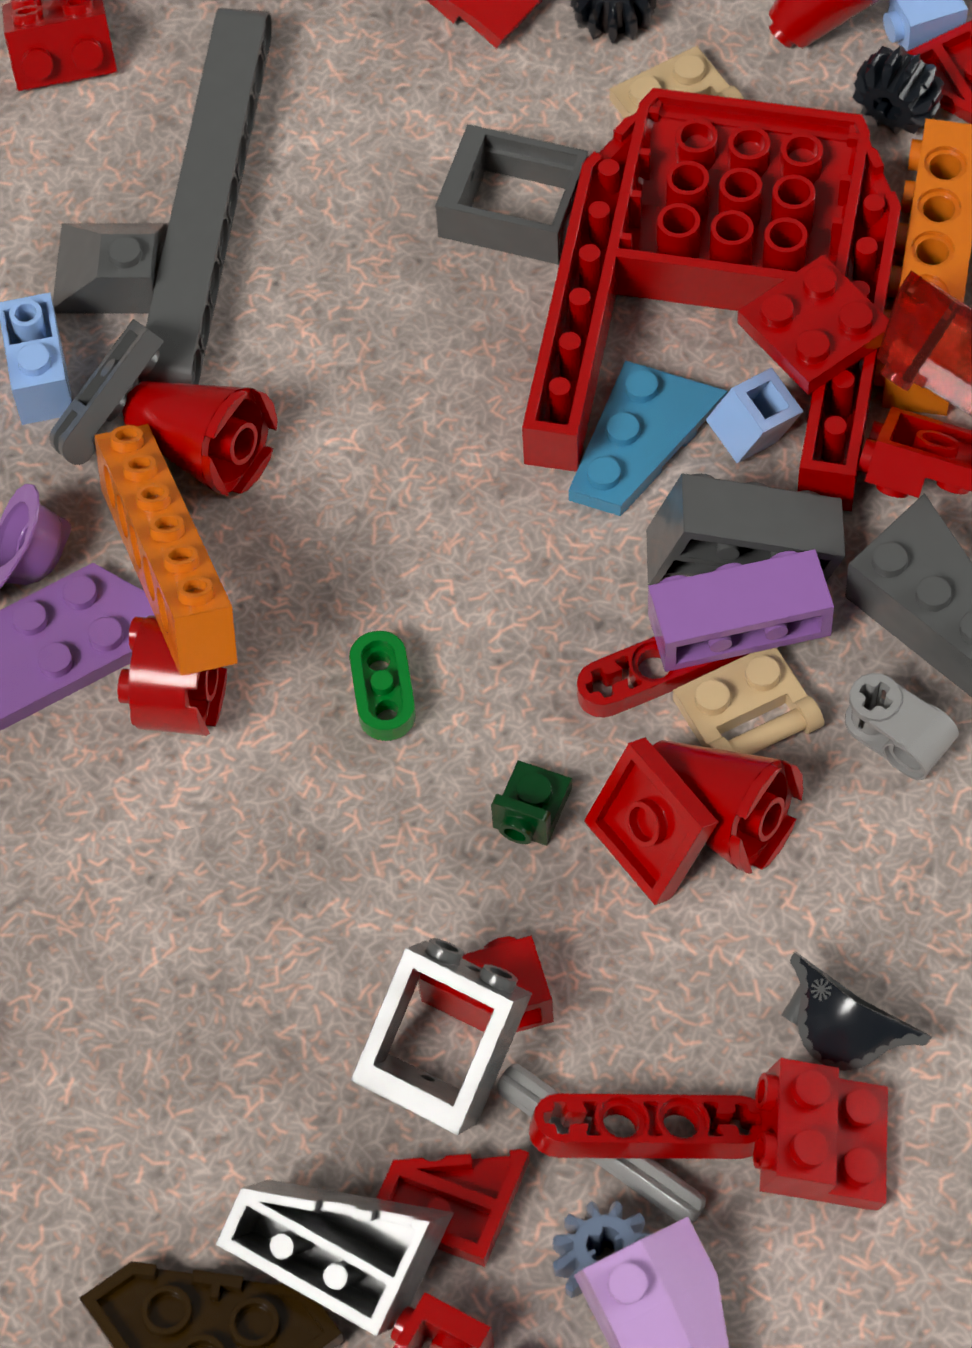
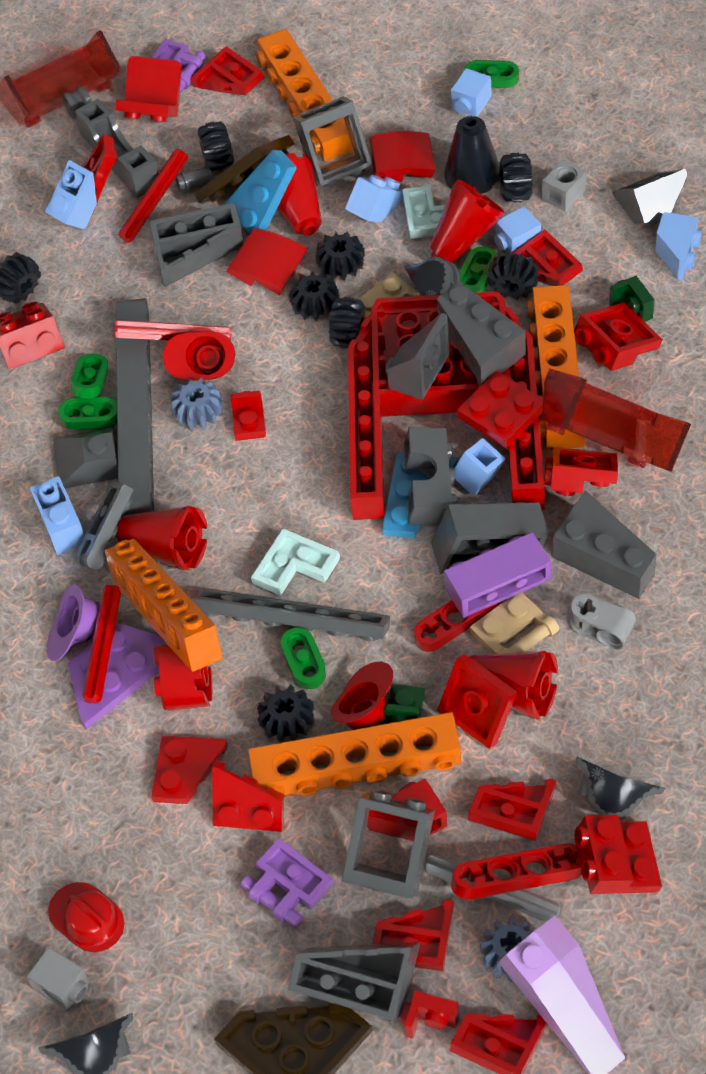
camera: 10 degrees left, 5 degrees down
(54, 594) = (101, 644): none -> red axle
(132, 191) = (89, 412): none -> green plate
(141, 827) = (183, 766): none -> red wing
(144, 129) = (89, 376): none -> green plate
(224, 911) = (244, 802): none -> red wing
(279, 1052) = (295, 875): none -> medium lavender plate
(298, 79) = (161, 331): none -> axle
(310, 211) = (196, 403): none -> sand blue gear
(329, 774) = (285, 713): none -> black gear
(332, 129) = (199, 355): none -> red piece
(366, 599) = (303, 615): none -> dark grey plate
(392, 248) = (248, 415): none -> red bracket
(401, 853) = (368, 743): none -> orange brick
(403, 504) = (293, 554): none -> light aqua plate
(464, 776) = (364, 697): none -> red piece
(516, 157) = (308, 352): dark grey window -> none
(552, 61) = (313, 295): none -> black gear
(593, 112) = (345, 320): none -> black gear
(669, 1014) = (512, 807): none -> red wing
(674, 374) = (429, 453): none -> dark grey arch
(696, 210) = (420, 359): none -> dark grey slope
(762, 68) = (433, 275): none -> black hat
(810, 182) = (480, 332): none -> dark grey wedge
(834, 73) = (472, 273): none -> green plate

